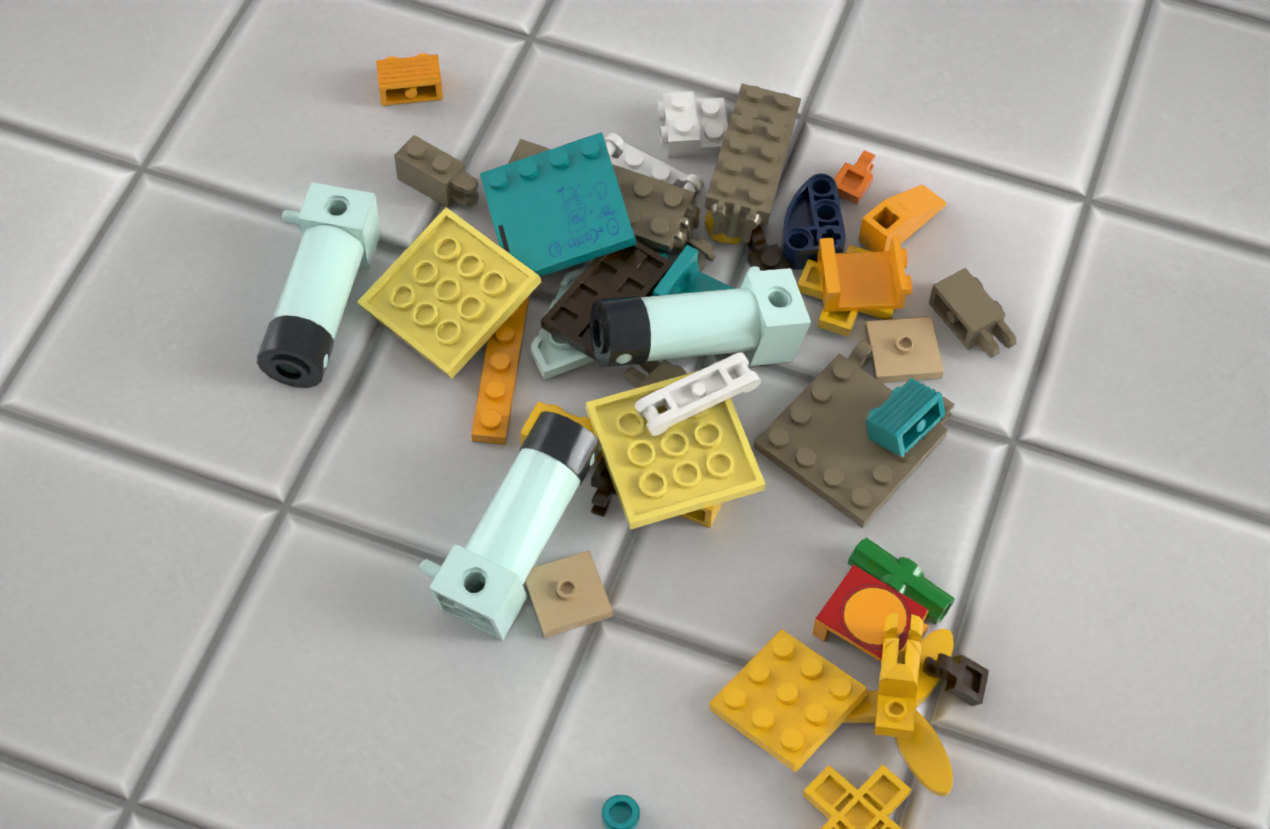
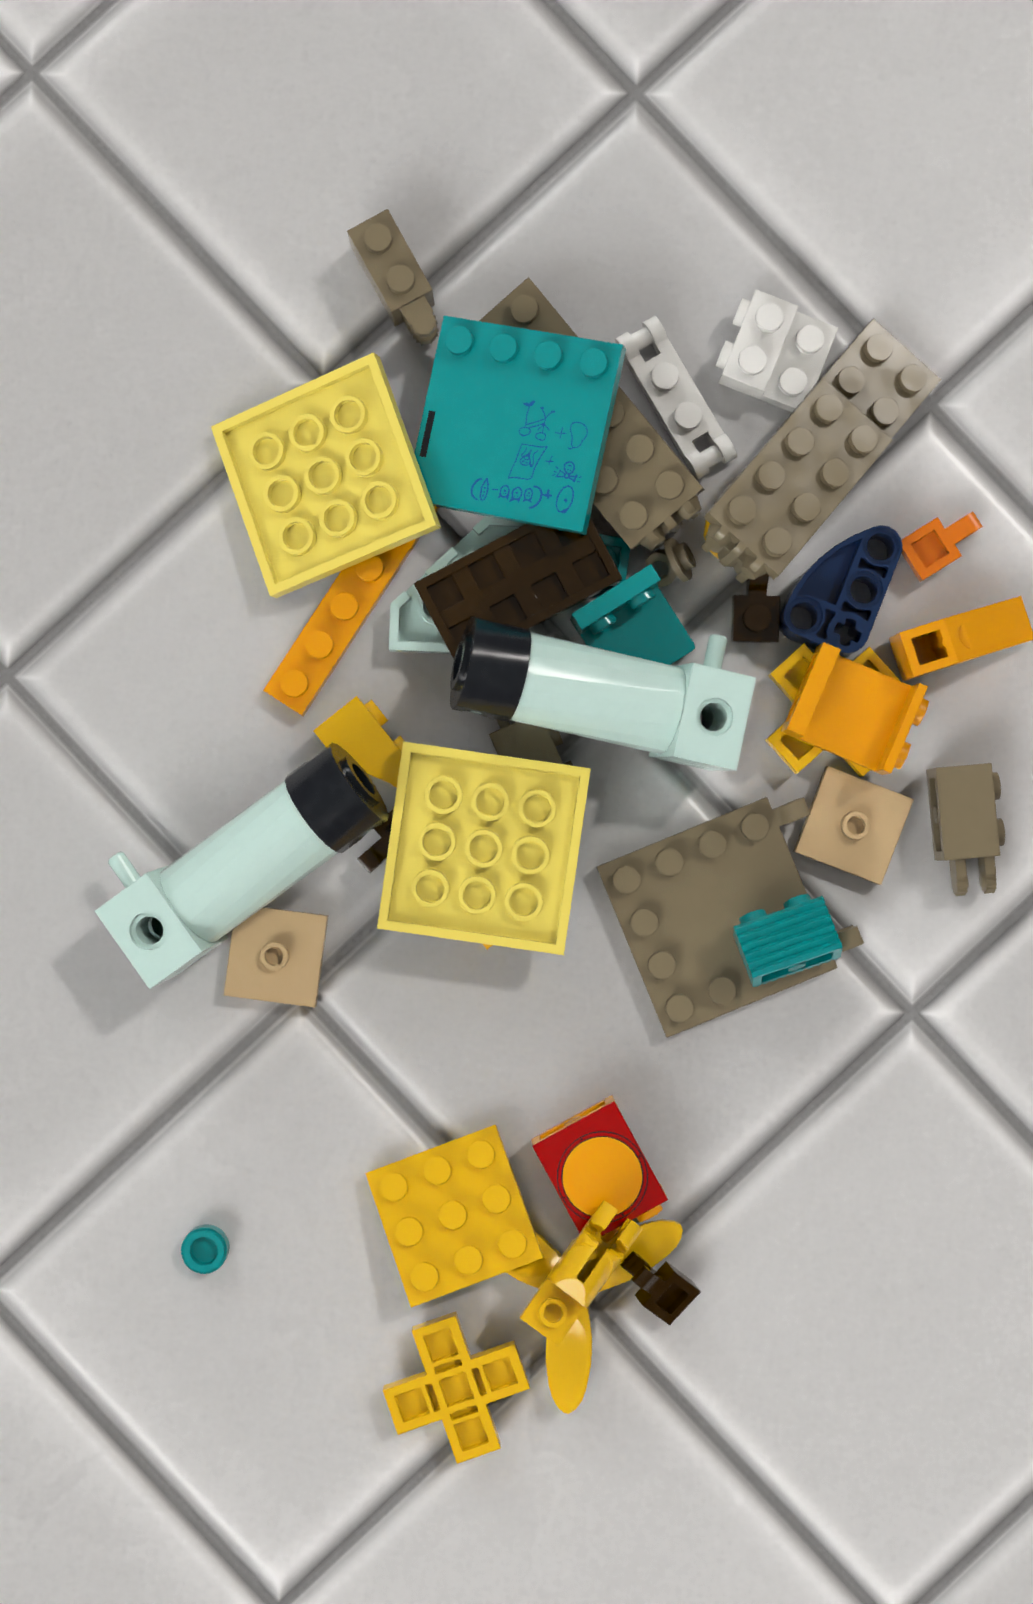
camera: 25 degrees right, 30 degrees up
(337, 238) = (168, 384): light aqua piece -> none
(409, 79) = (434, 94): light orange brick -> none
(697, 393) = (541, 803): white plate -> none
(902, 576) = (665, 1135): green piece -> none

